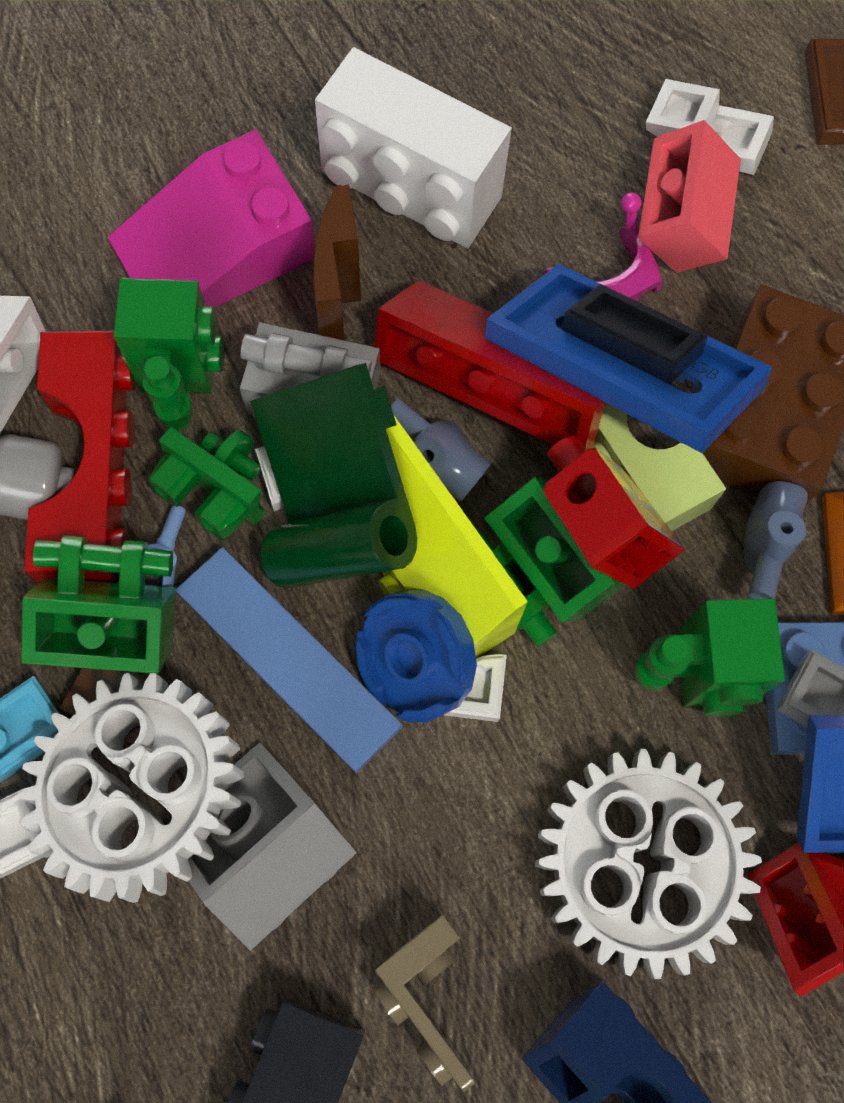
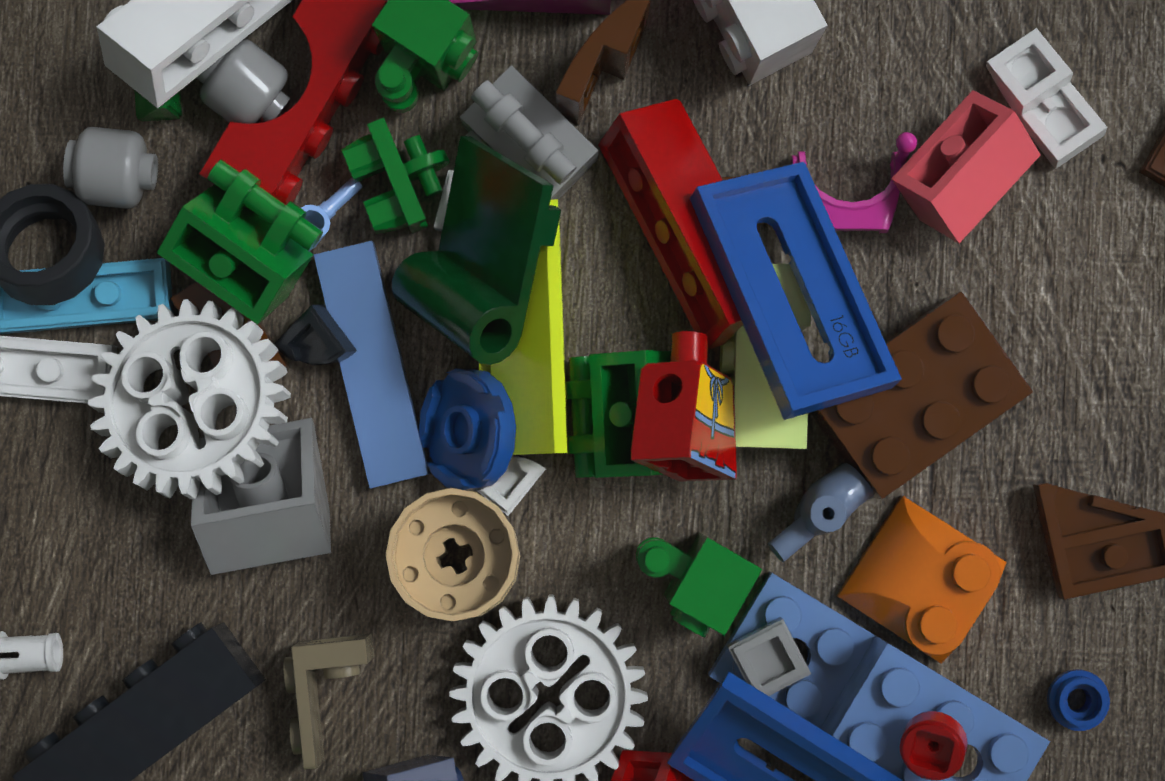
camera: 35 degrees right, 15 degrees up
(222, 663) = (315, 339): none -> black tile
(444, 449) = (598, 269): sand blue piece -> none
(470, 738) = (420, 542): none -> tan wheel
(634, 333) = (812, 275): black tile -> none

